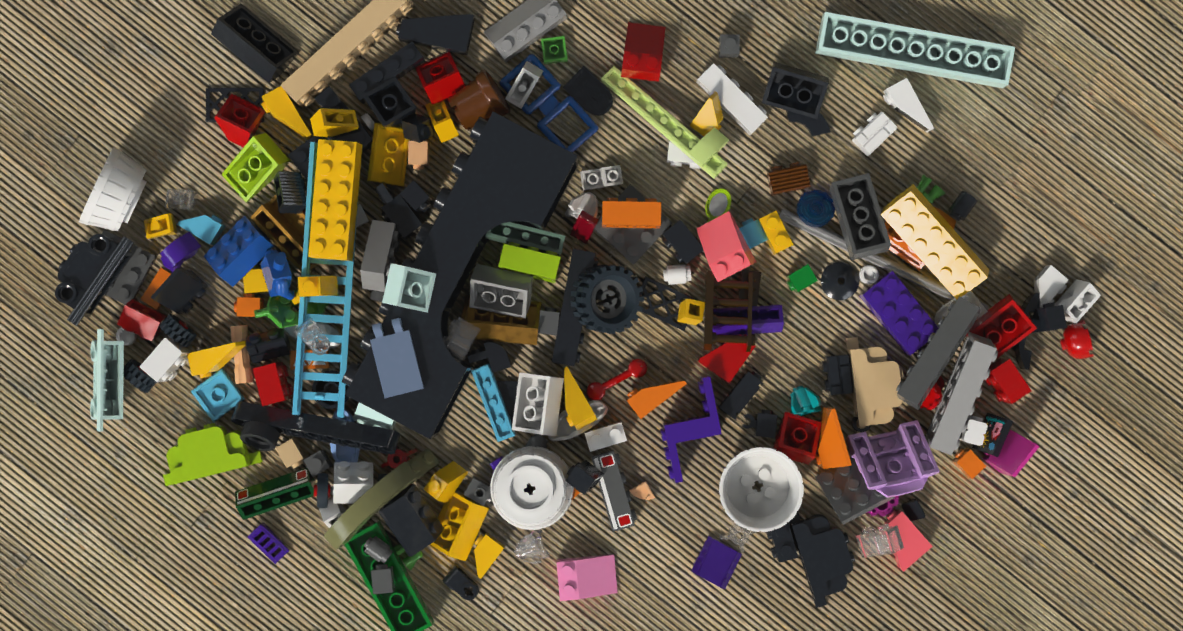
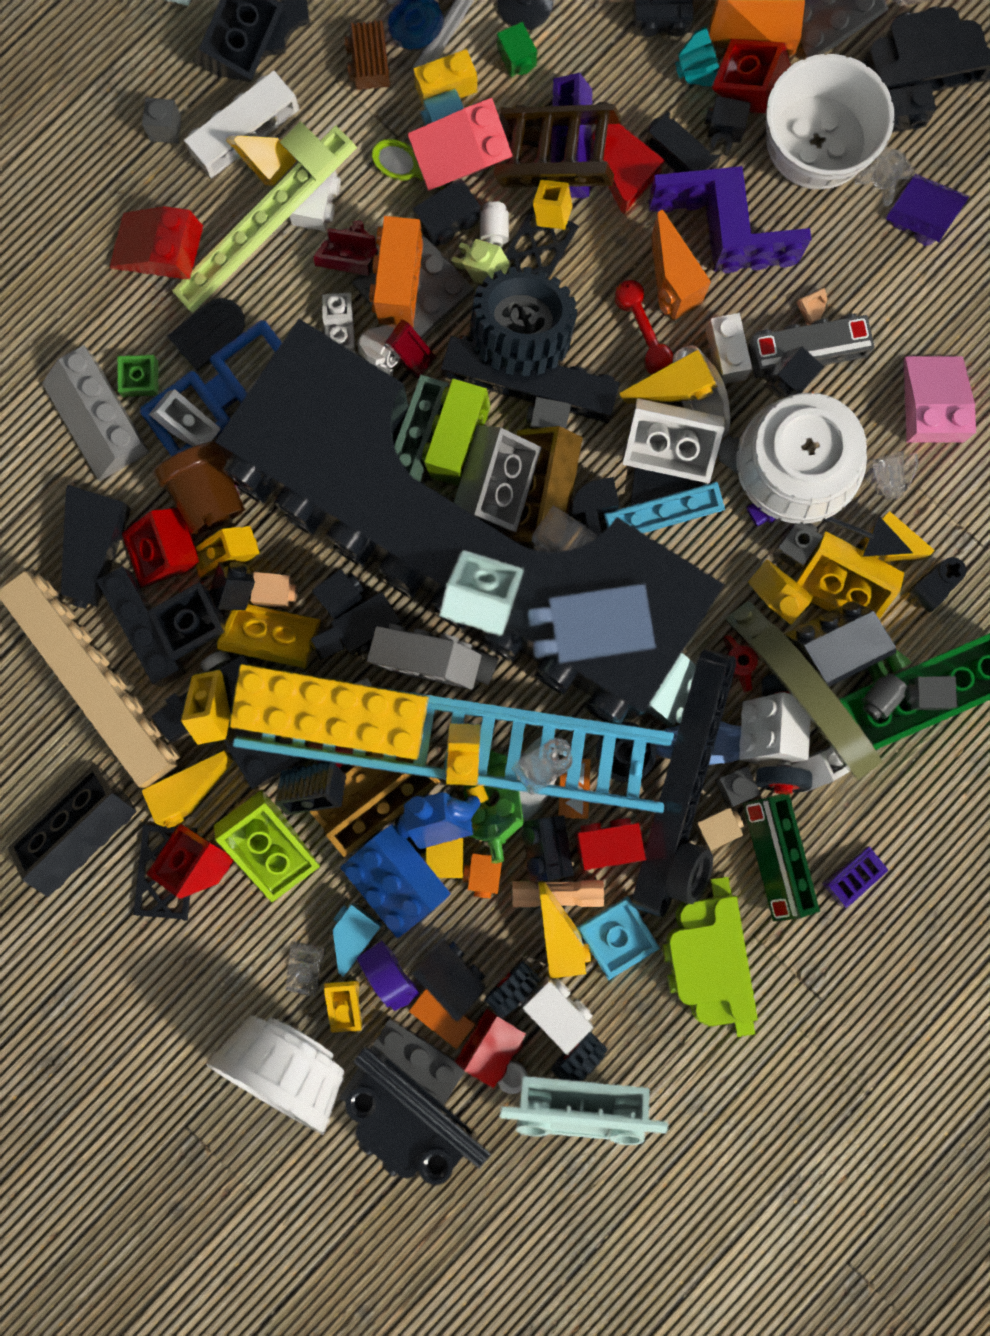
camera: 85 degrees left, 5 degrees down
(483, 544) = (881, 541): none -> black piece
(649, 269) = (481, 260): none -> yellowish green brick
(651, 179) = (347, 250): none -> dark red slope

